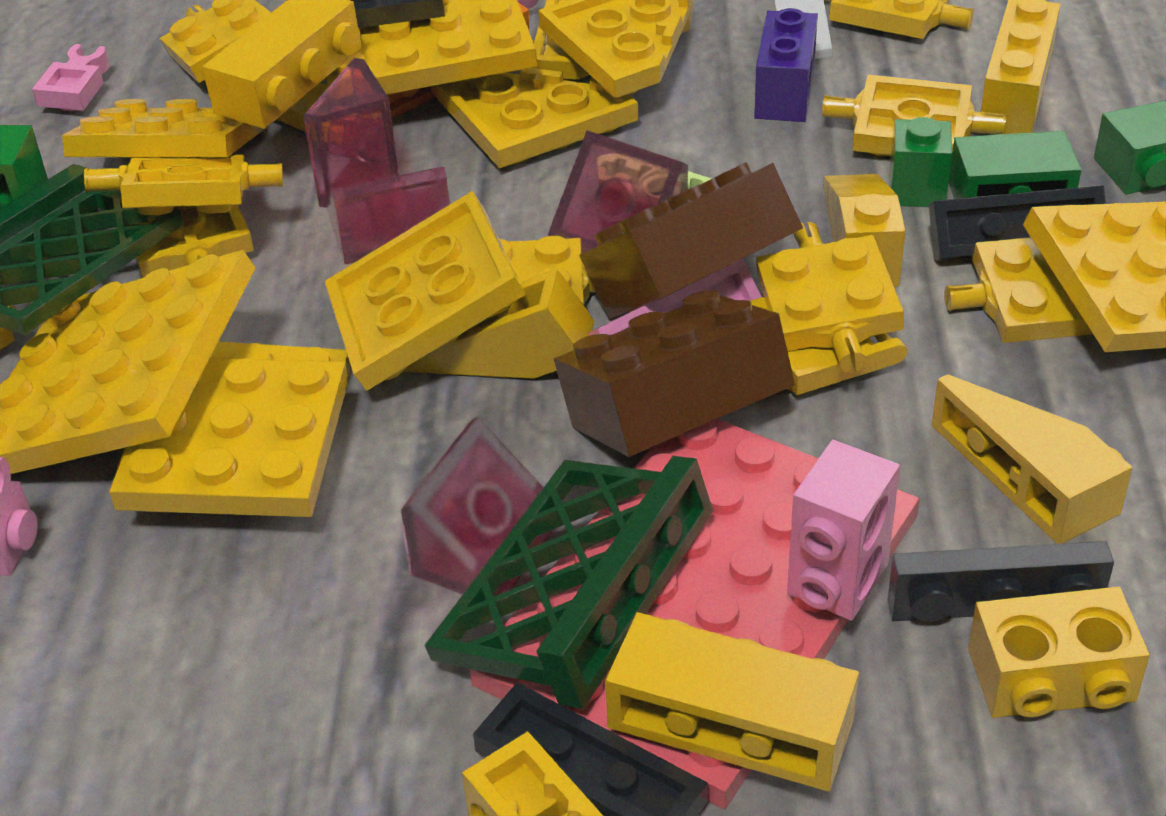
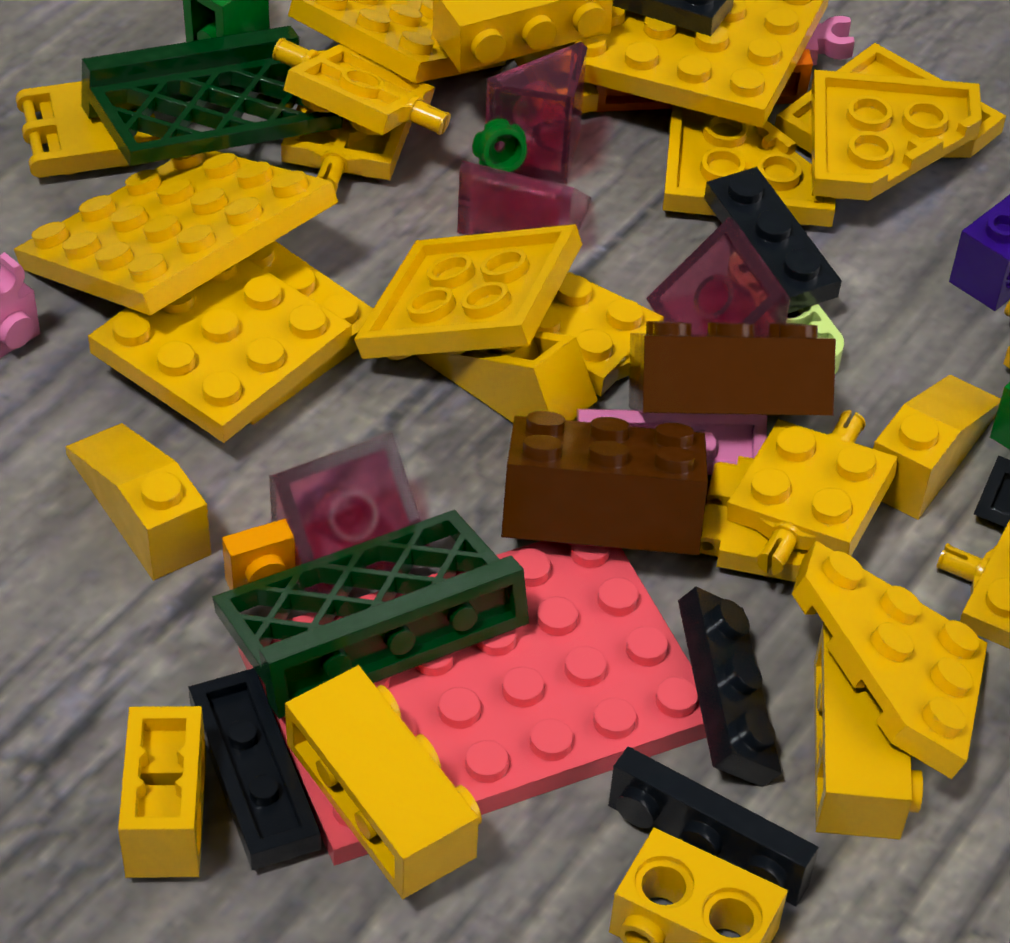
camera: 30 degrees right, 5 degrees up
(274, 600) = (145, 498): none -> yellow slope
(349, 163) = (514, 147): none -> green plate
(430, 591) = (258, 553): none -> light orange plate
(568, 119) = (775, 236): none -> black plate
(842, 529) = (580, 698): bright pink brick -> none
(947, 499) = (729, 687): none -> black plate
(1013, 371) = (906, 654): none -> yellow plate

